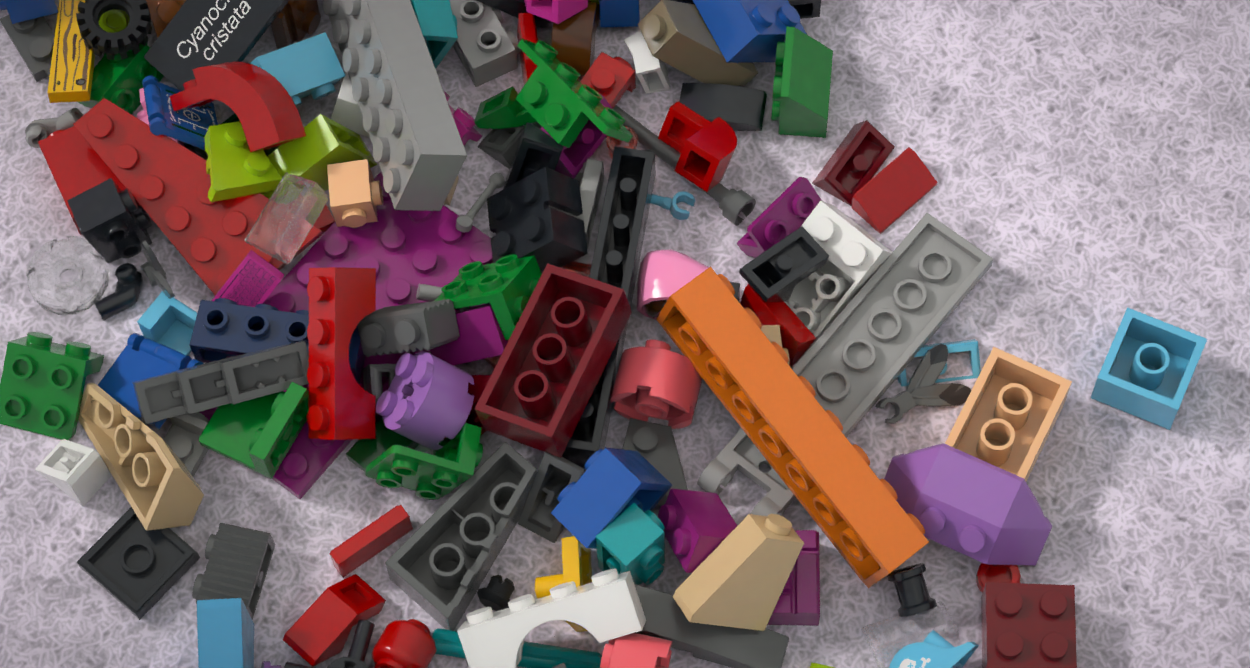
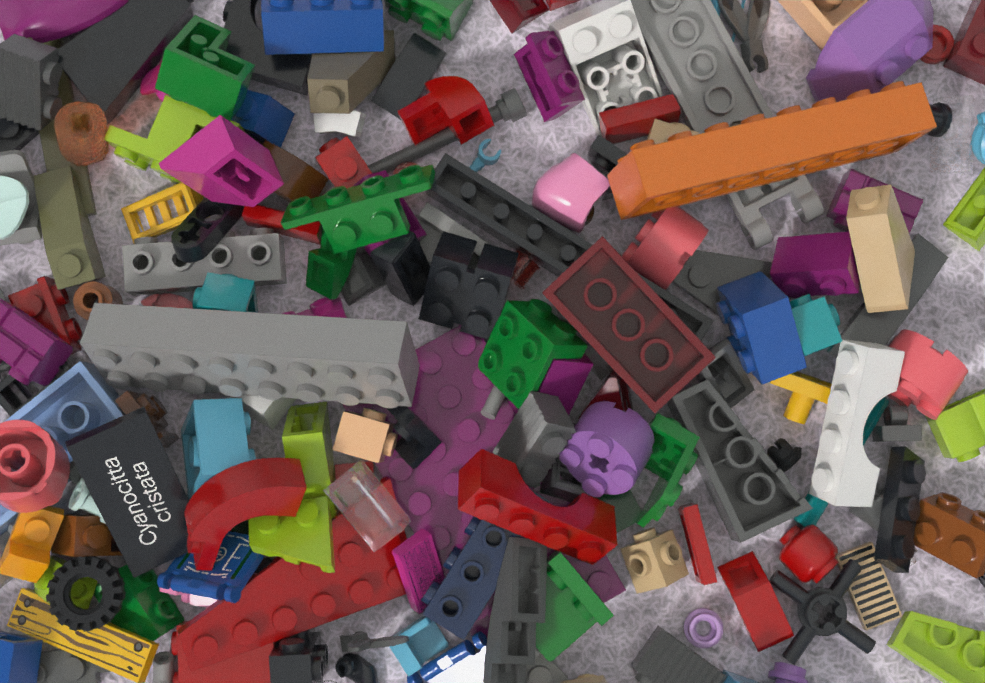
camera: 70 degrees left, 20 degrees up
(284, 573) = (714, 634): none -> lavender plate
(338, 503) = (654, 560): none -> tan brick
(375, 231) = (417, 438): none -> black bracket
(465, 222) = (430, 347): light grey hinge -> none
(784, 266) = (610, 89): black slope -> none

